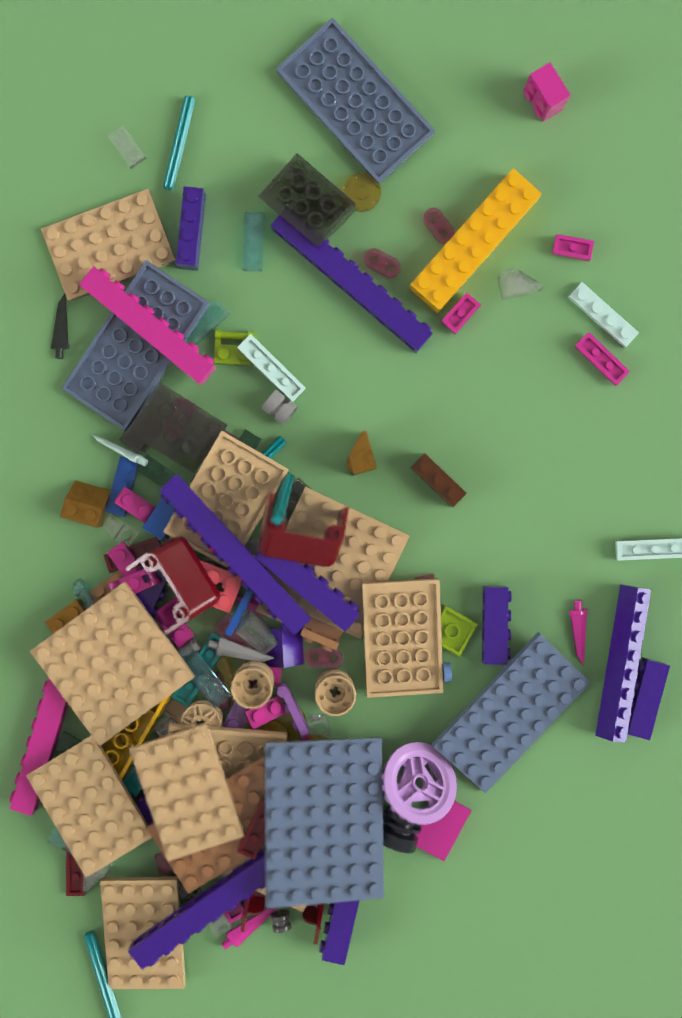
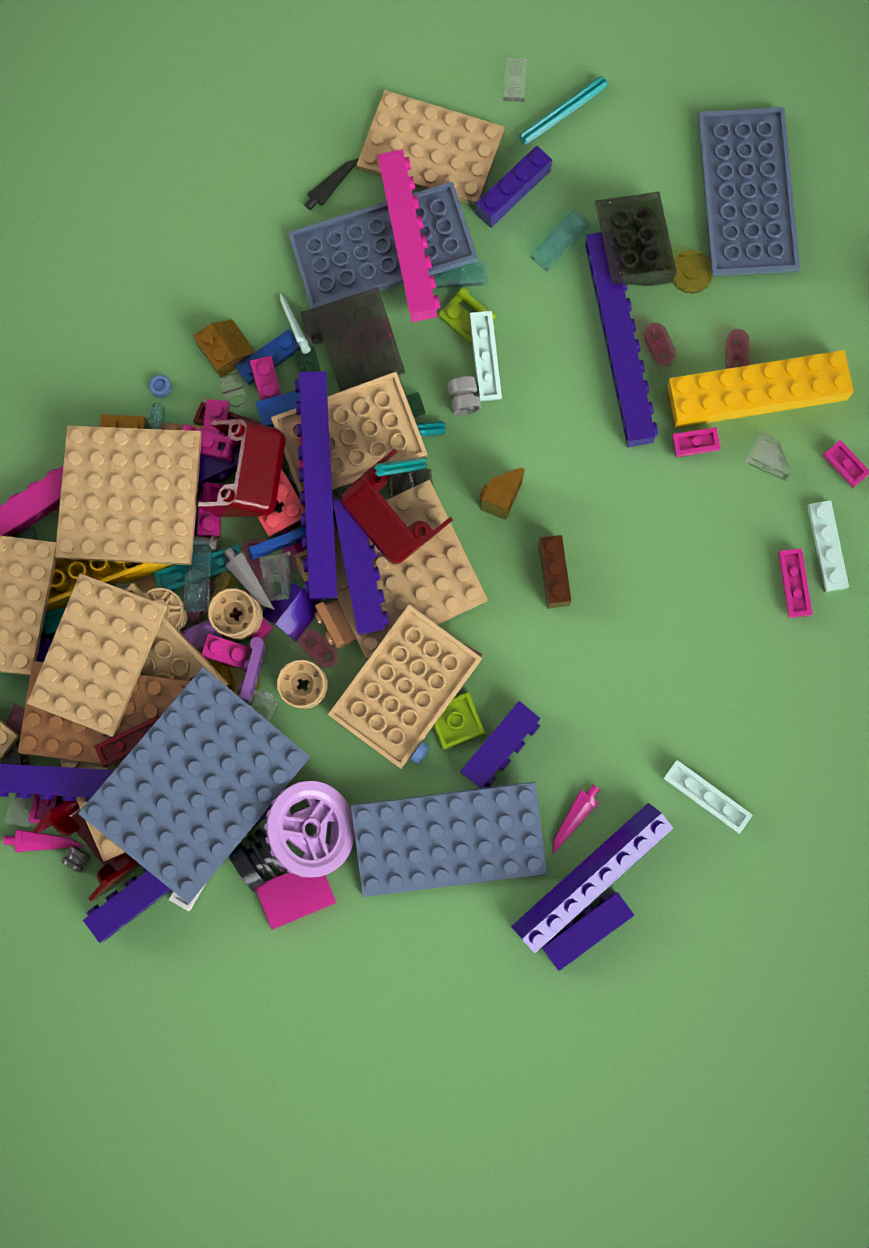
camera: 45 degrees right, 10 degrees down
(66, 566) = (160, 386): none -> medium blue tile

